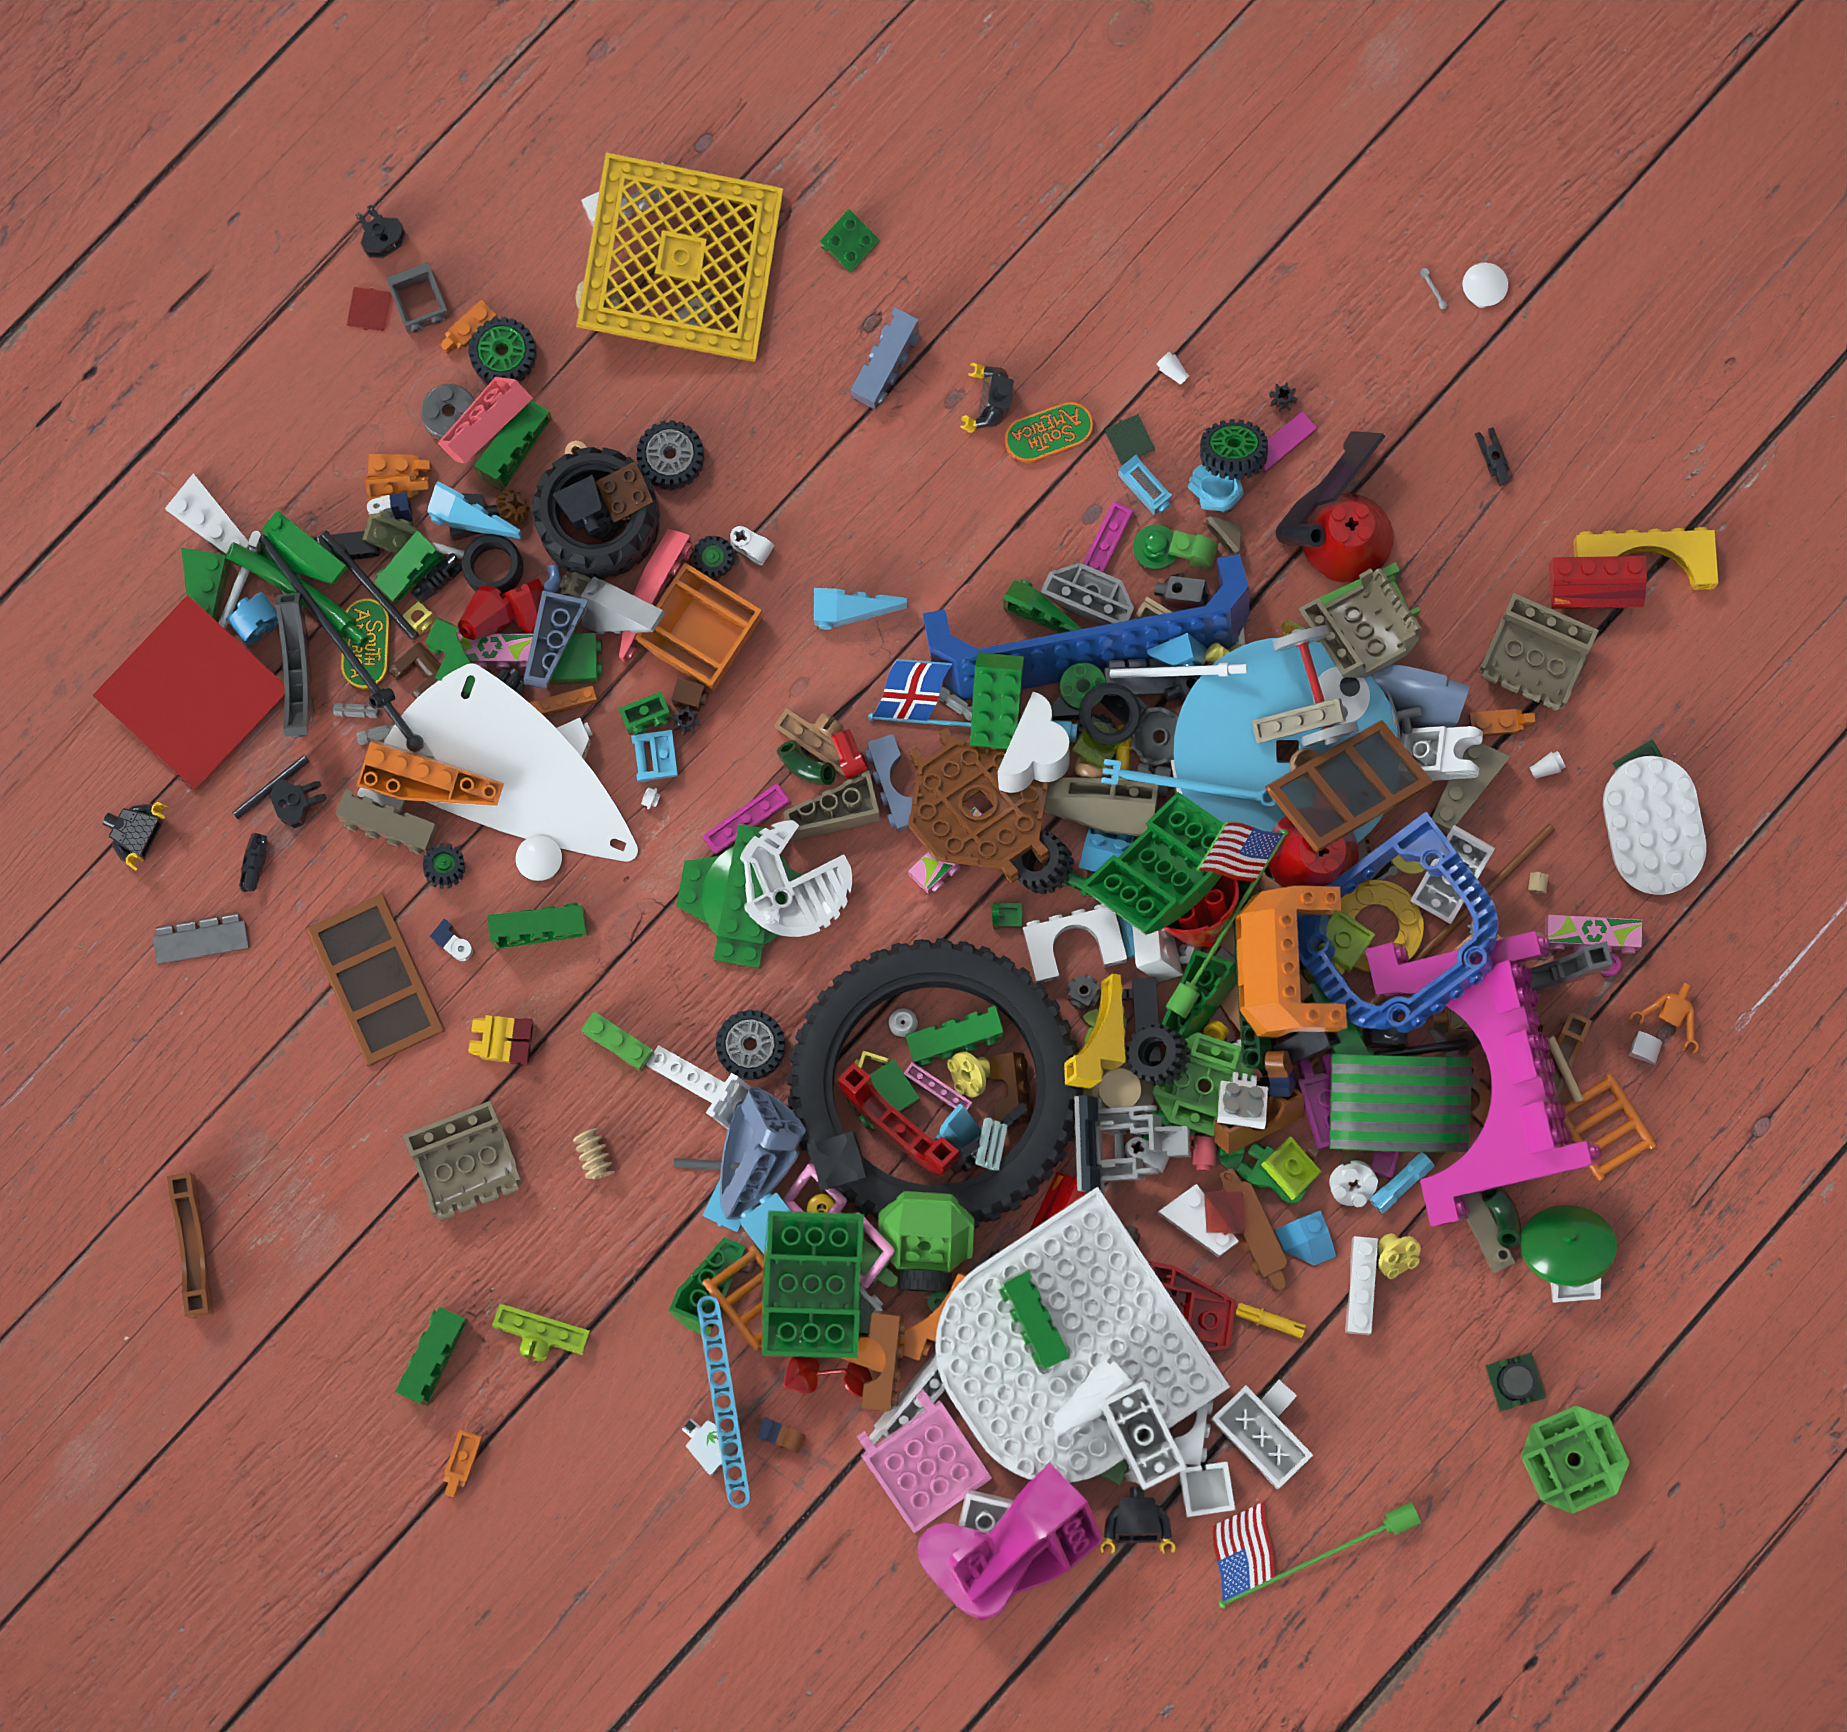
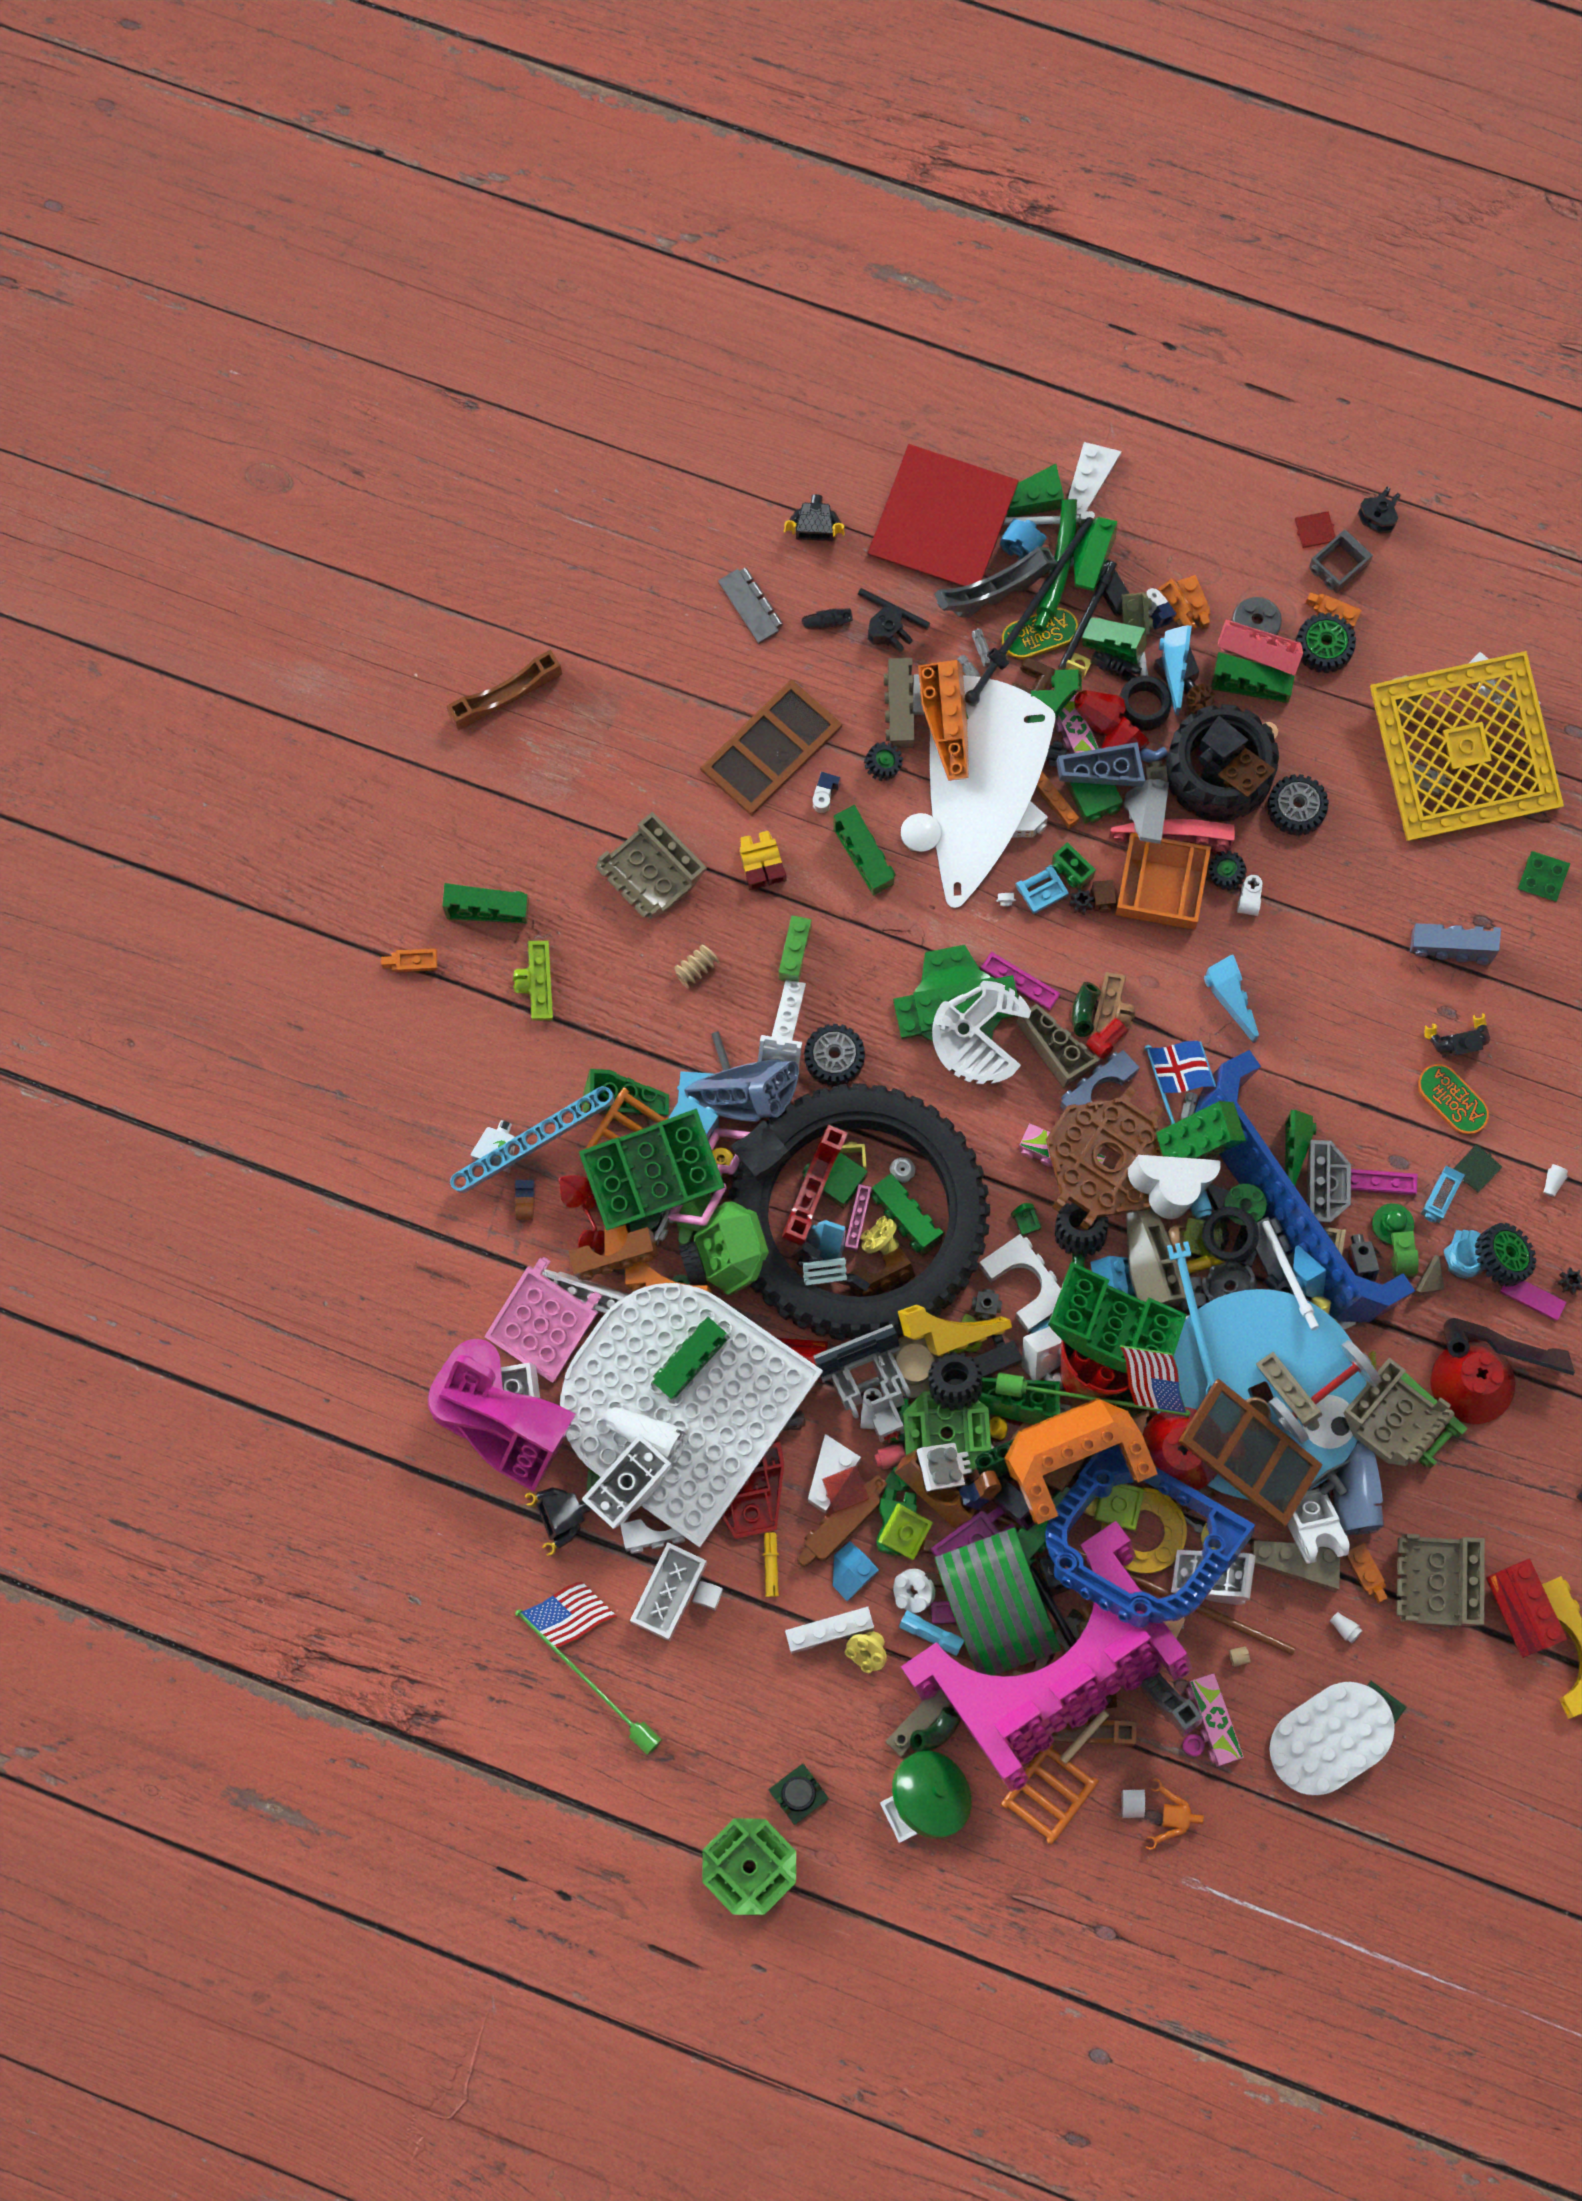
camera: 65 degrees right, 5 degrees down
(1207, 1490) = (607, 1563): white piece -> none

